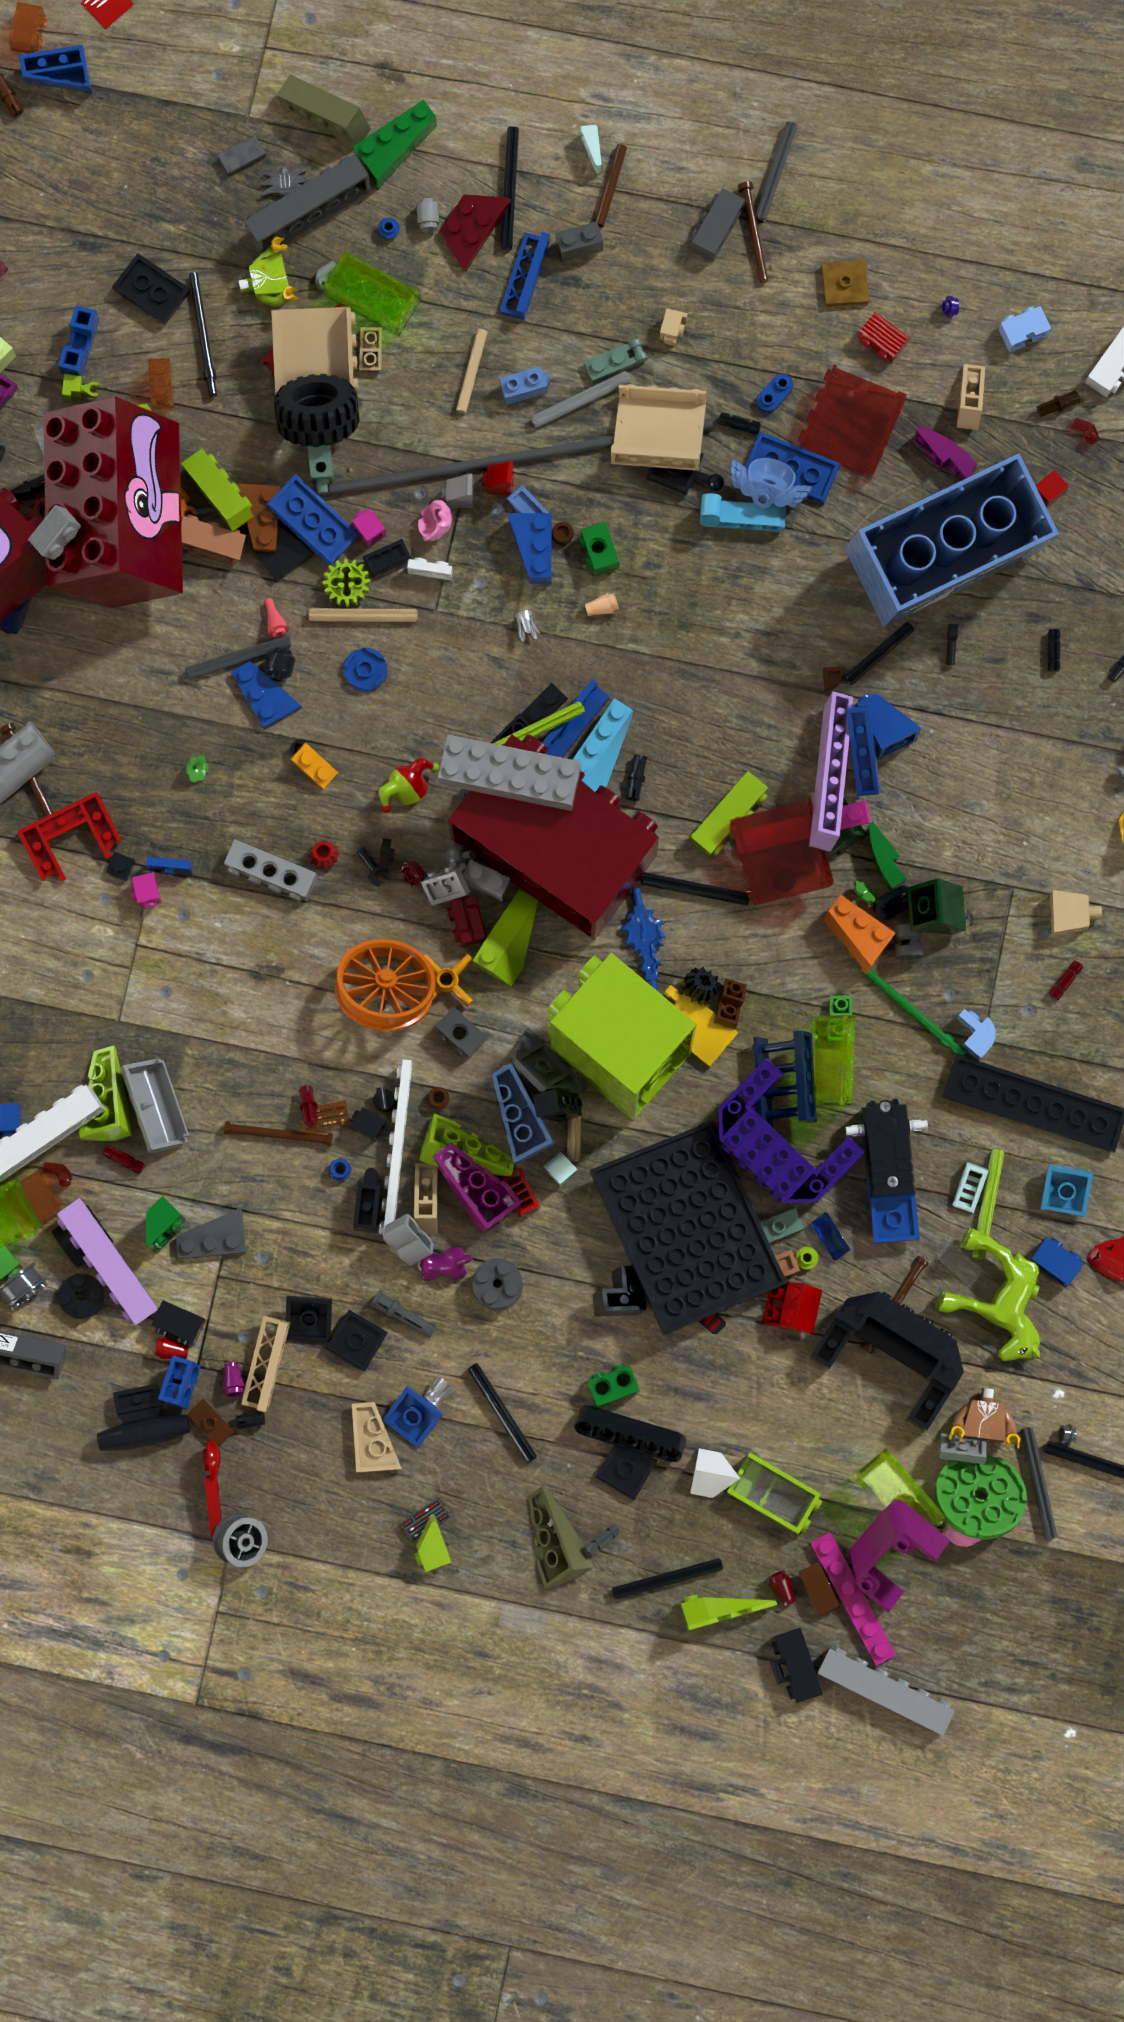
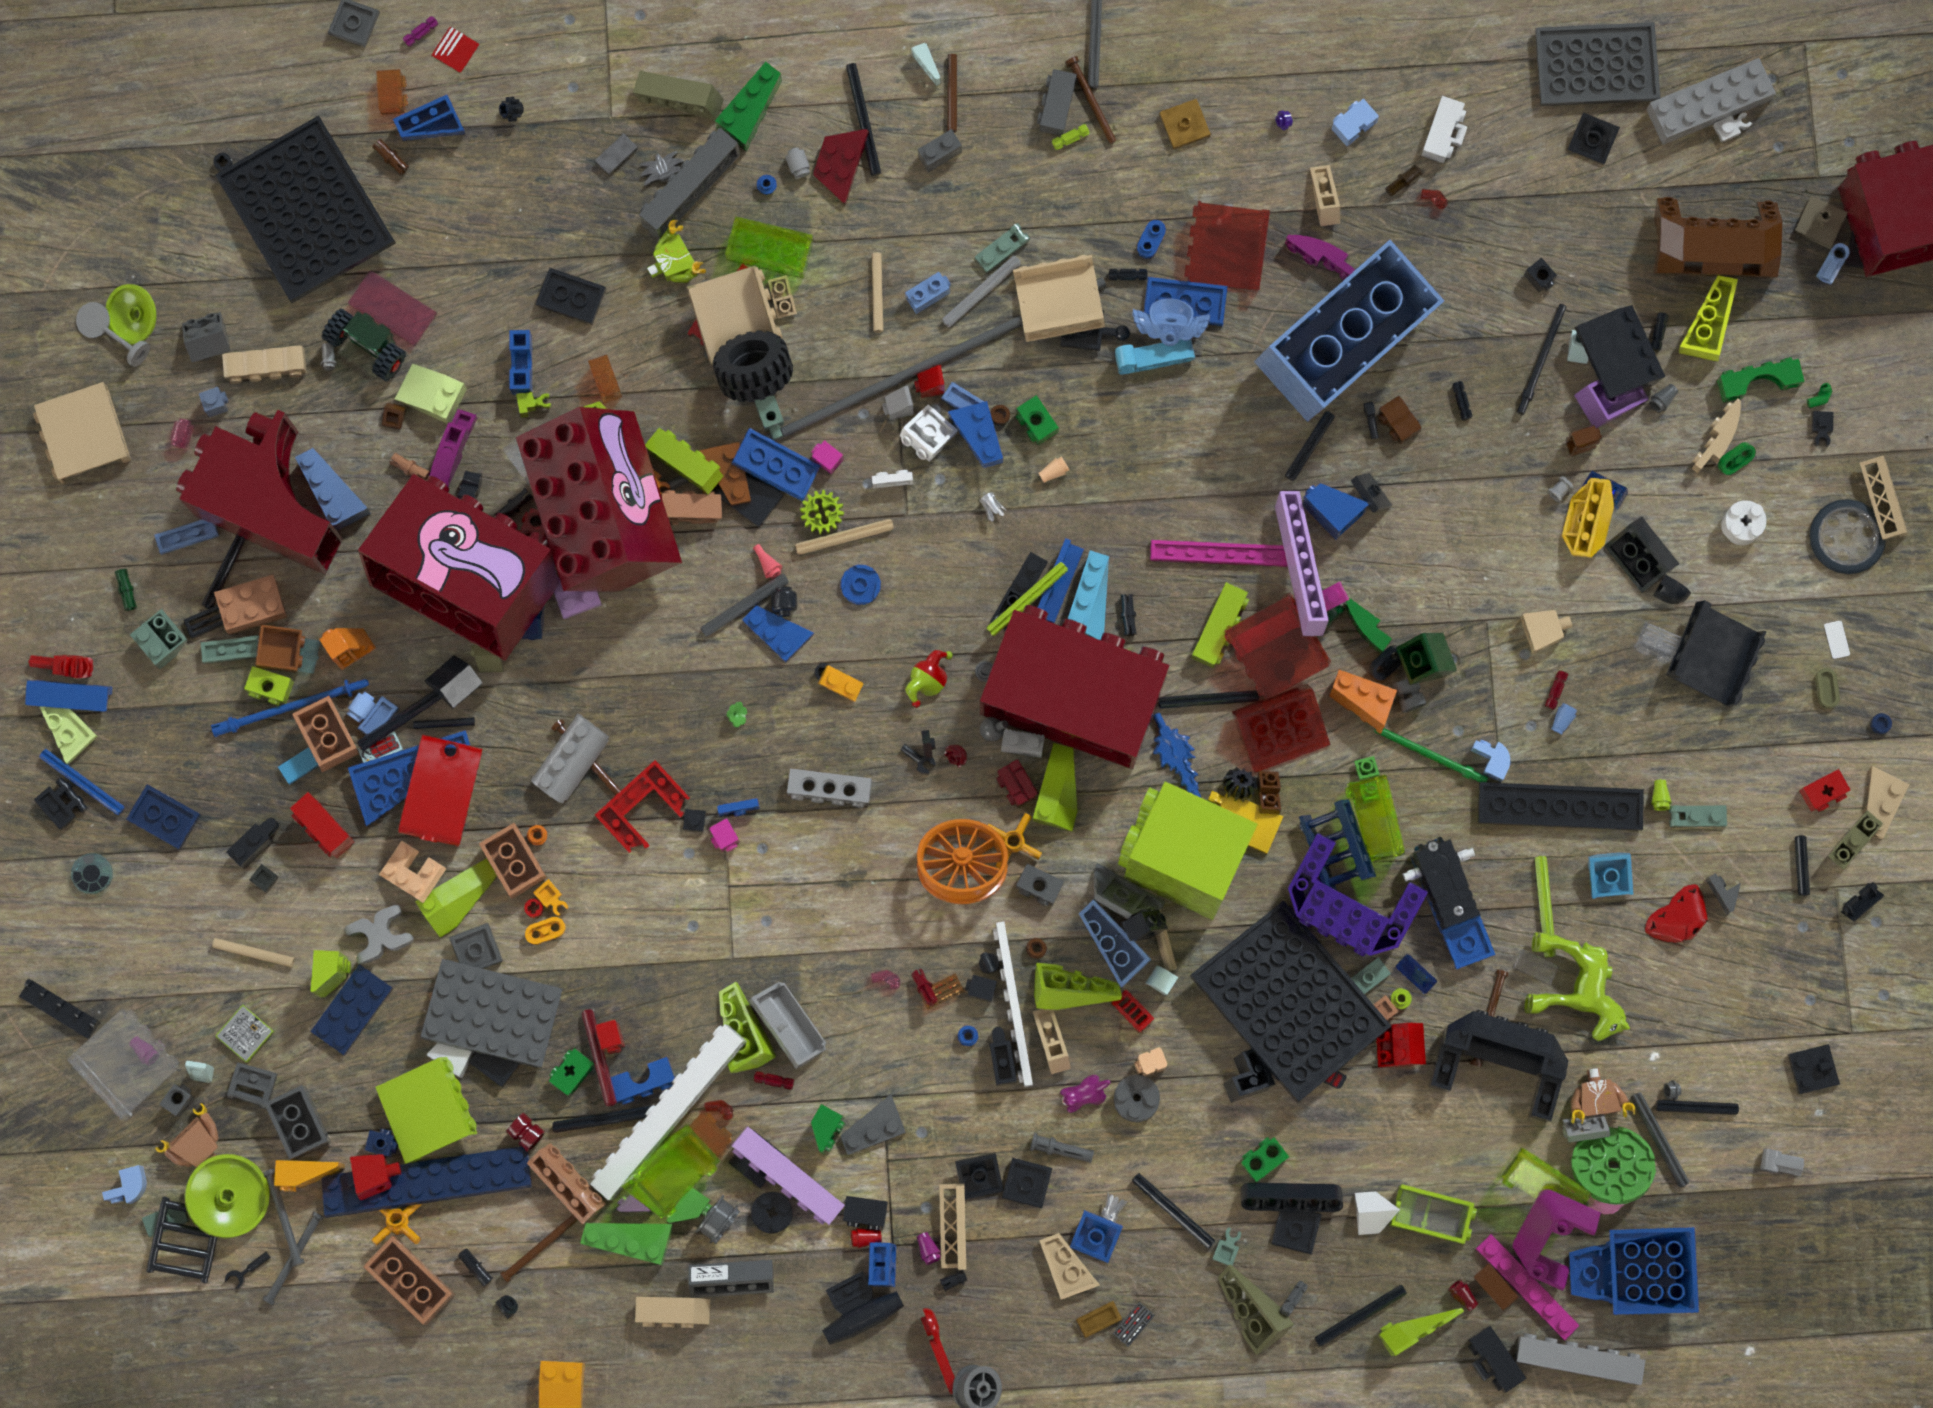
camera: 15 degrees left, 0 degrees up
(54, 532) = (560, 542): light grey brick -> none
(64, 606) = (575, 602): none -> lavender plate
(146, 79) = (511, 109): none -> black gear
(209, 373) = (644, 357): black bar -> none
(210, 1422) = (919, 1292): reddish brown plate -> none
(273, 1084) = (887, 976): none -> clear pink arm
(277, 1133) = (904, 1019): reddish brown bar -> none
(323, 273) = (720, 241): light grey arm -> none
(324, 854) = (872, 759): red piece -> none
(387, 558) = (851, 480): black plate -> none
(390, 1504) = (1099, 1319): none -> pearl gold tile
(408, 1240) = (1048, 1081): light grey brick -> none
(431, 1547) = (1146, 1346): lime slope -> none
(435, 520) = (884, 435): bright pink hair -> none
(445, 883) = (988, 756): light grey bracket -> none
(478, 1191) = (1097, 1021): magenta wedge -> none
(481, 531) = (927, 433): none -> white plate
(509, 772) = (1023, 644): light grey brick -> none
(522, 1250) = (1150, 1062): none -> light nougat brick
(532, 275) = (907, 193): blue fence -> none
(545, 1470) = (1226, 1250): none -> sand green plate
(673, 326) = (1044, 205): tan brick -> none
(720, 264) = (1070, 137): none -> lime axle
(750, 739) = (1218, 553): none -> dark pink tile
(763, 939) = (1281, 727): none -> clear red slope
(832, 677) = (1275, 477): reddish brown tile -> none
(863, 750) = (1323, 536): blue panel -> none
(863, 893) = (1357, 662): bright green plant -> none
(882, 338) = (1232, 164): red brick -> none
(928, 719) = (1371, 492): none -> black plate
(962, 1184) = (1518, 887): light aqua slope -> none
(976, 1615) = (1640, 1271): none -> blue wedge
(981, 652) = (1399, 420): none -> reddish brown brick
(1051, 488) = (1420, 256): red brick -> none
(1056, 1261) = (1620, 940): blue brick -> none
(1065, 1011) = (1563, 718): none -> medium blue cone

